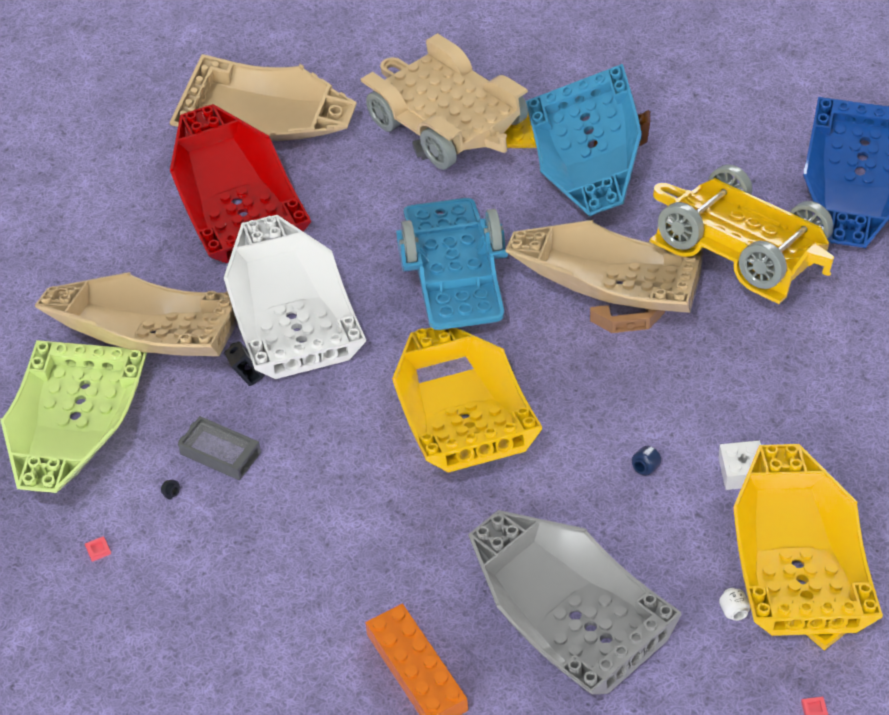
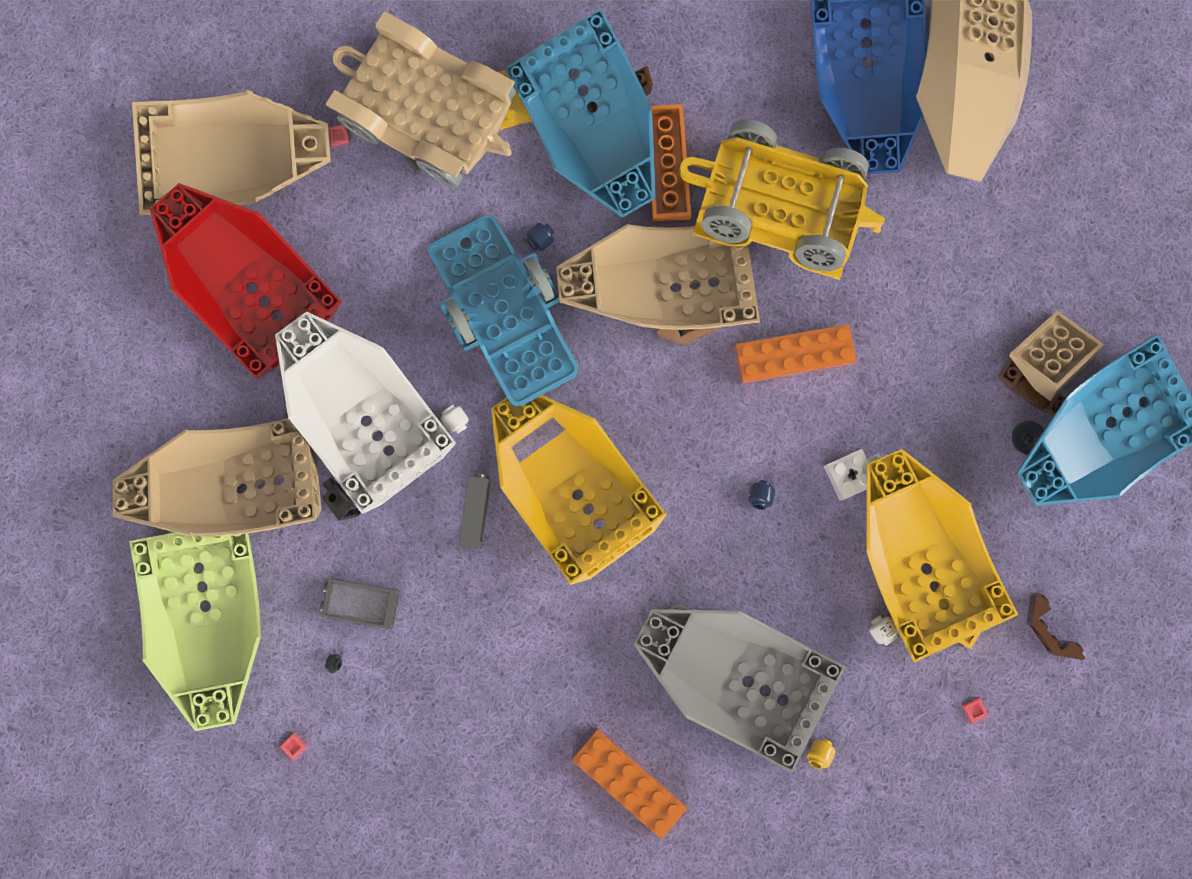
camera: 25 degrees left, 35 degrees up
(359, 400) = (475, 511): none -> dark grey window
(362, 121) = (338, 135): none -> coral tile
(373, 331) = (454, 419): none -> white head
(510, 221) = (540, 237): none -> dark blue head
(629, 697) = (820, 754): none -> yellow head
(640, 208) = (669, 144): none -> orange brick
(718, 358) = (795, 354): none -> orange brick

